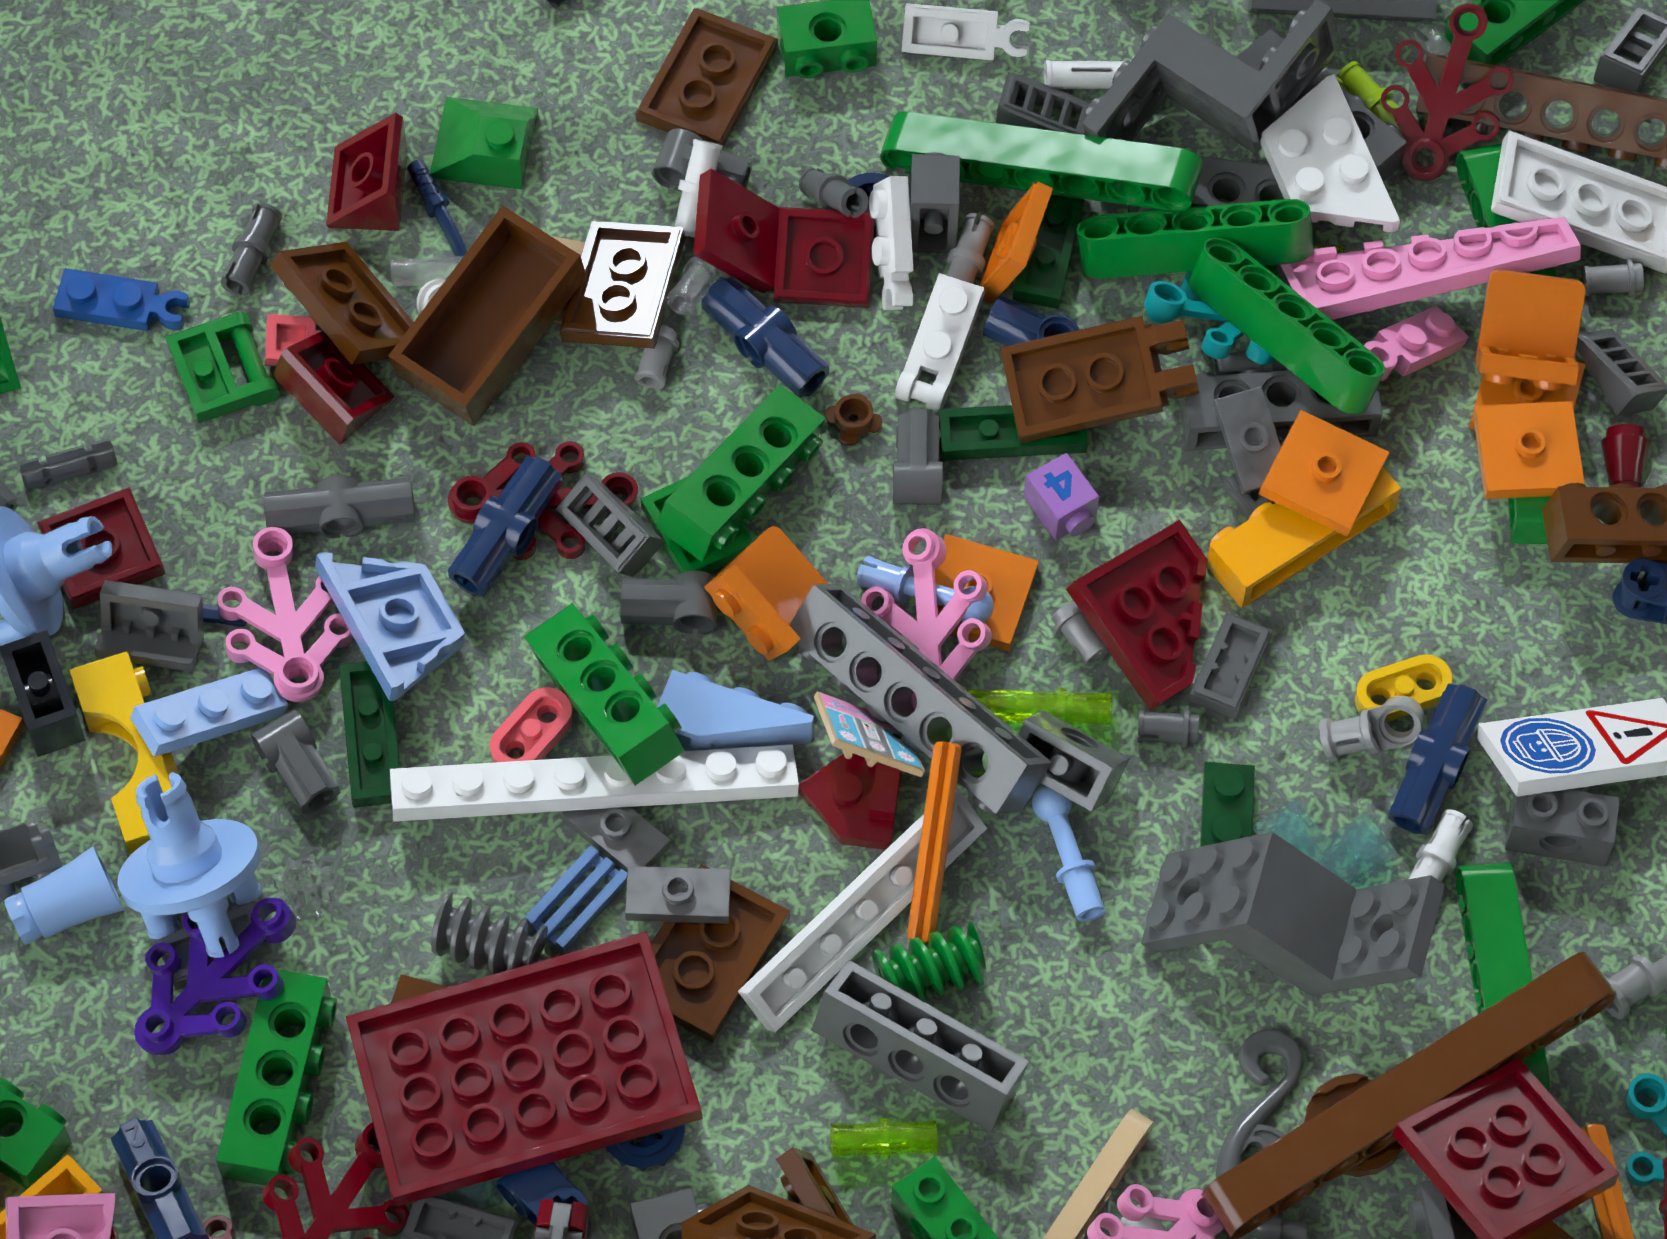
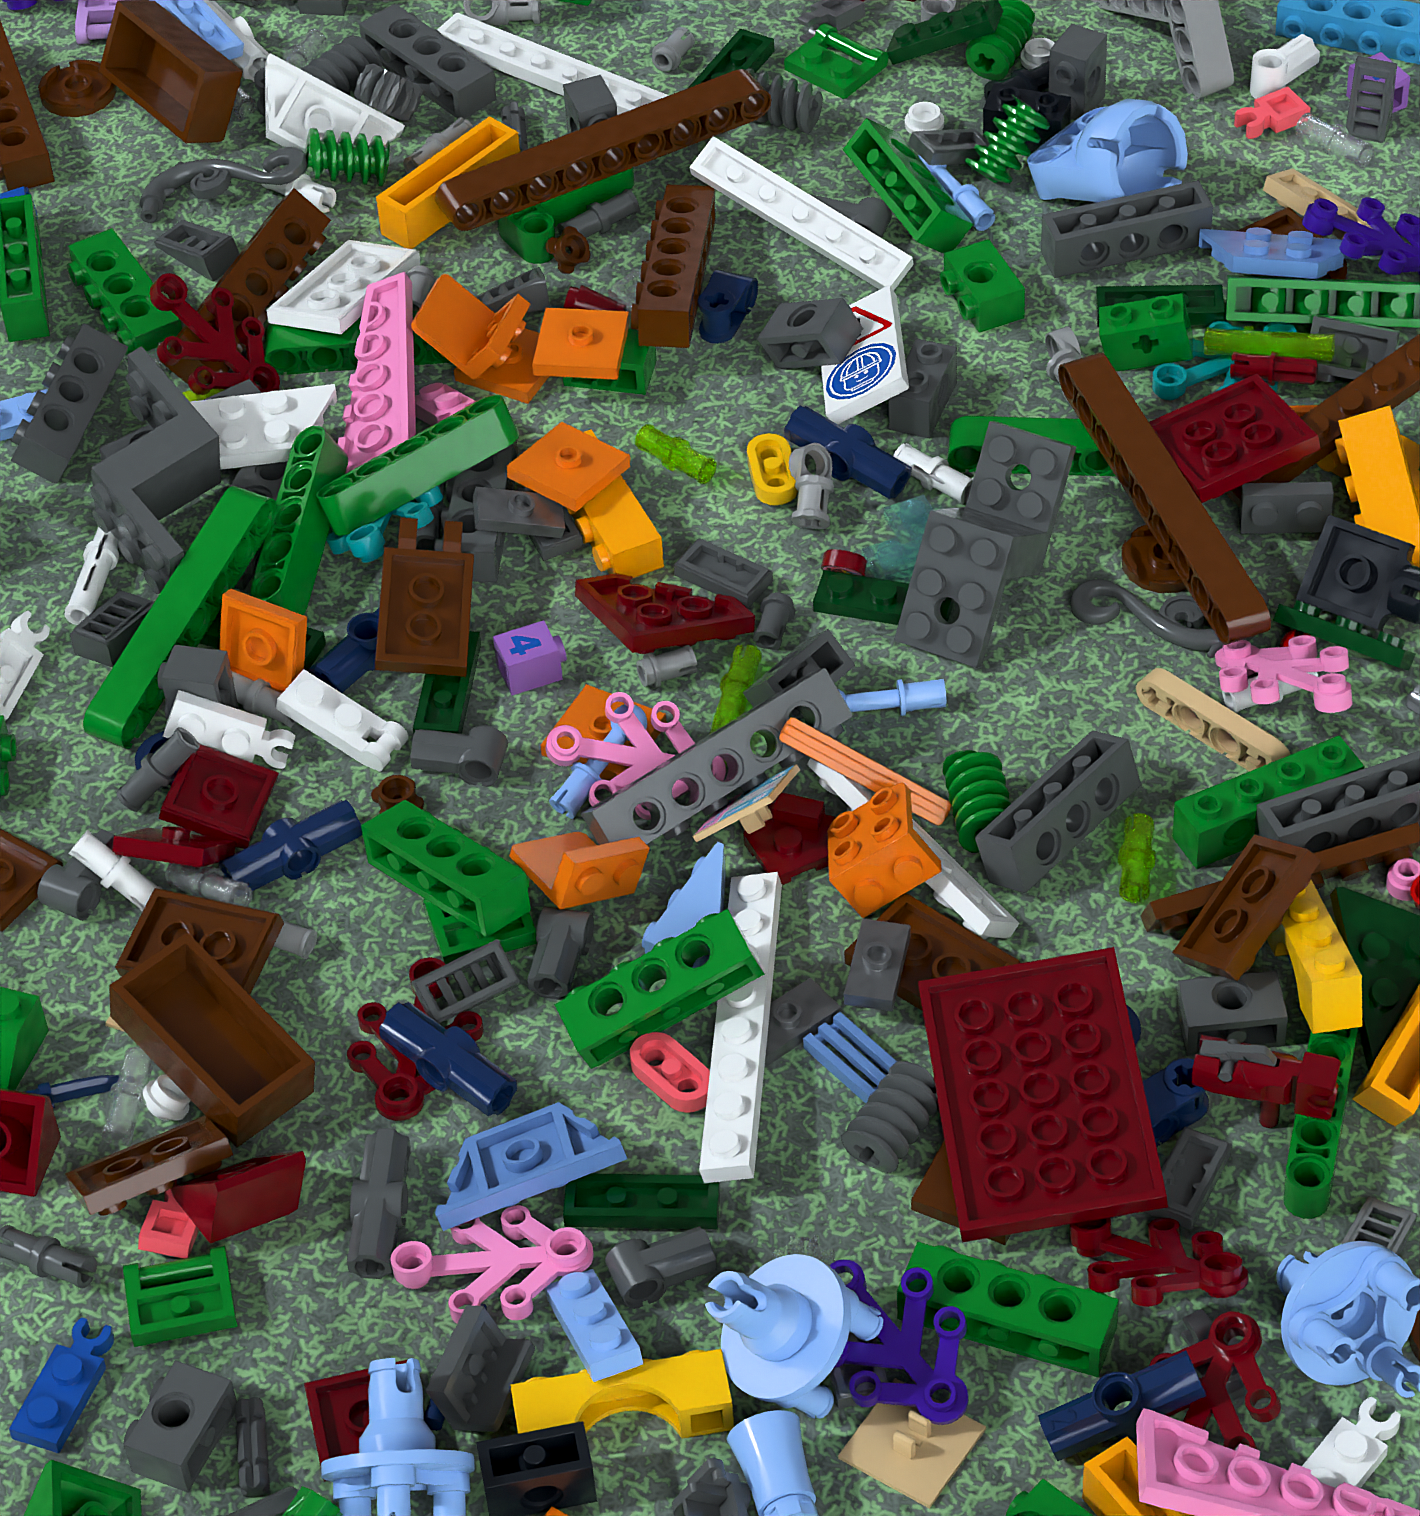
camera: 75 degrees left, 15 degrees down
(94, 417) = (179, 1453): none -> dark grey brick
(108, 1017) = (909, 1450): none -> tan piece
(824, 857) = (878, 852): none -> orange bracket
(1262, 783) = (844, 562): none -> dark red tile
(1407, 586) = (675, 454): none -> clear neon green pin
(1614, 686) = (810, 333): none -> dark grey brick

